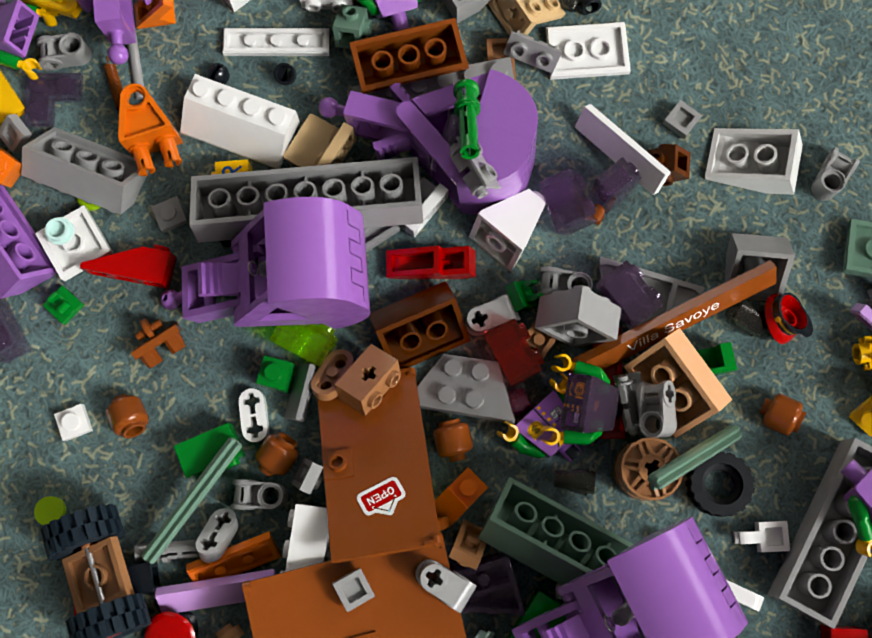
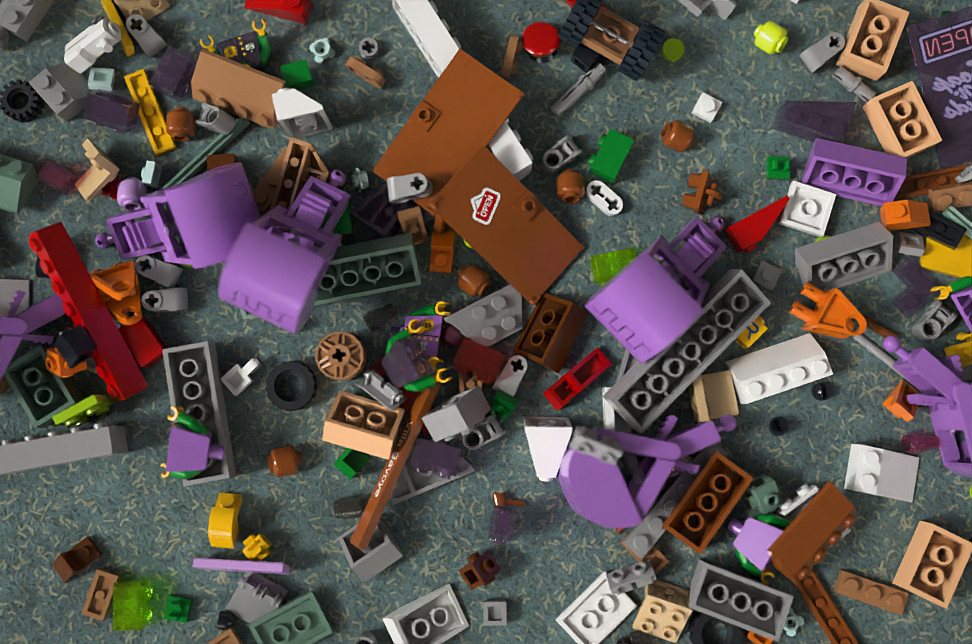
camera: 140 degrees right, 5 degrees up
(59, 231) = (821, 207): light aqua plate -> none
(191, 500) = (595, 119): sand green axle -> none
(205, 592) = (540, 81): lavender tile -> none
(214, 534) = (562, 114): light grey beam -> none
(237, 559) = (542, 108): orange tile -> none
(276, 41) = (804, 445): white tile -> none
(276, 374) = (611, 231): green brick -> none
(300, 393) = (587, 234): light grey slope -> none
(308, 476) = (540, 187): light grey plate -> none
(329, 374) = (578, 257): medium nougat plate -> none
(353, 589) = (458, 141): light grey plate -> none
(368, 379) = (556, 261): medium nougat brick -> none
(467, 109) = (631, 477): green pin -> none
(568, 201) = (524, 489): clear purple brick -> none
(618, 144) = (517, 555): white tile -> none
(656, 407) = (362, 394): light grey piece -> none
(694, 457) = (318, 384): sand green axle -> none
(746, 597) = (235, 327): white beam -> none
(786, 318) = (326, 526): red piece -> none

